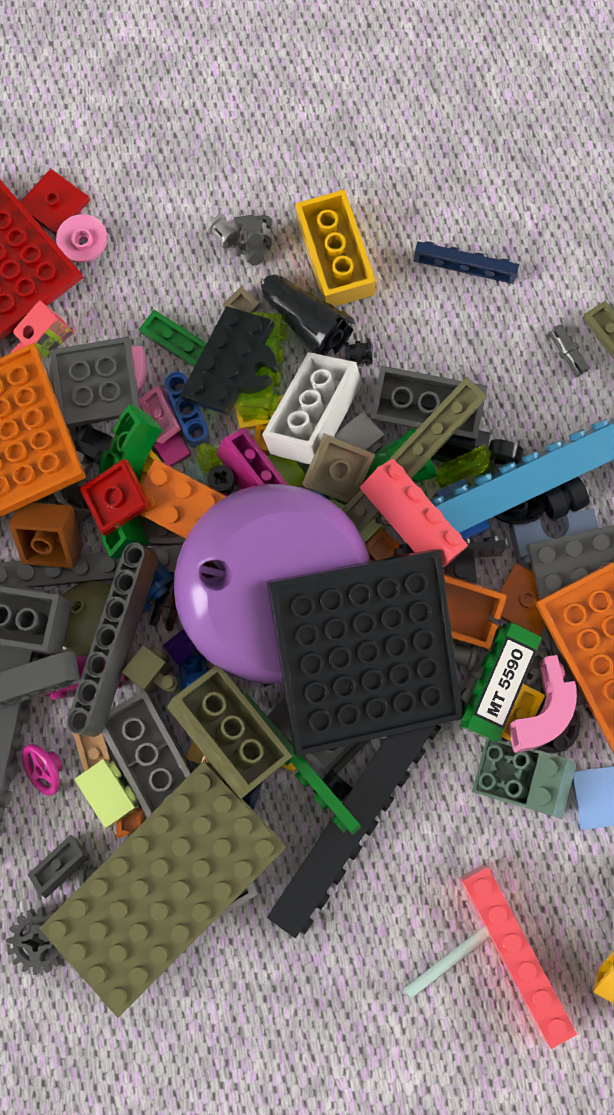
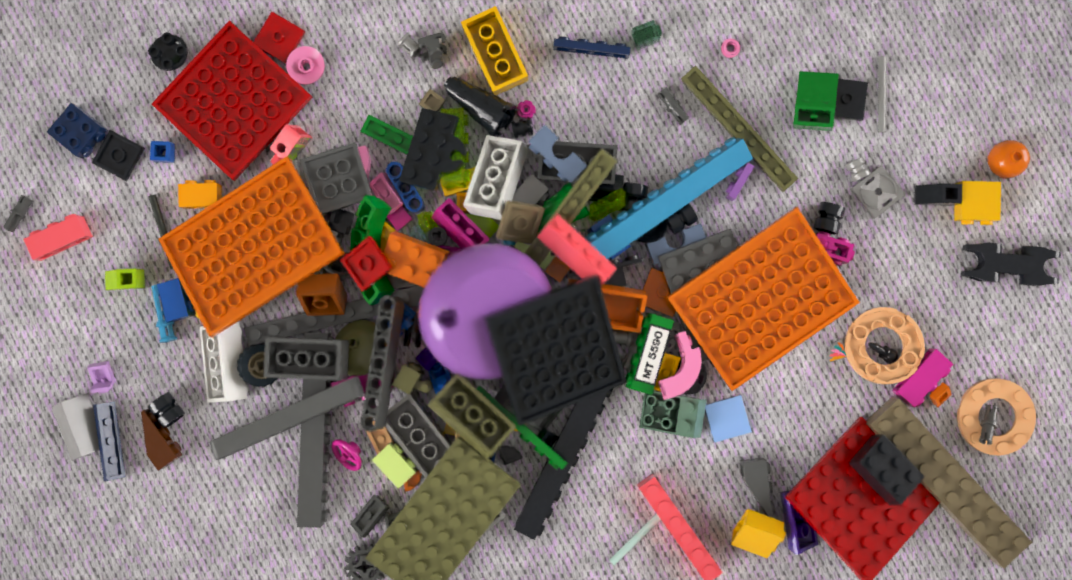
camera: 15 degrees left, 10 degrees up
(277, 804) = (509, 454): none -> black tile
(370, 324) = (526, 104): none -> dark pink plate
(384, 367) = (568, 167): none -> sand blue arch
(541, 254) = (646, 34): none -> clear green brick

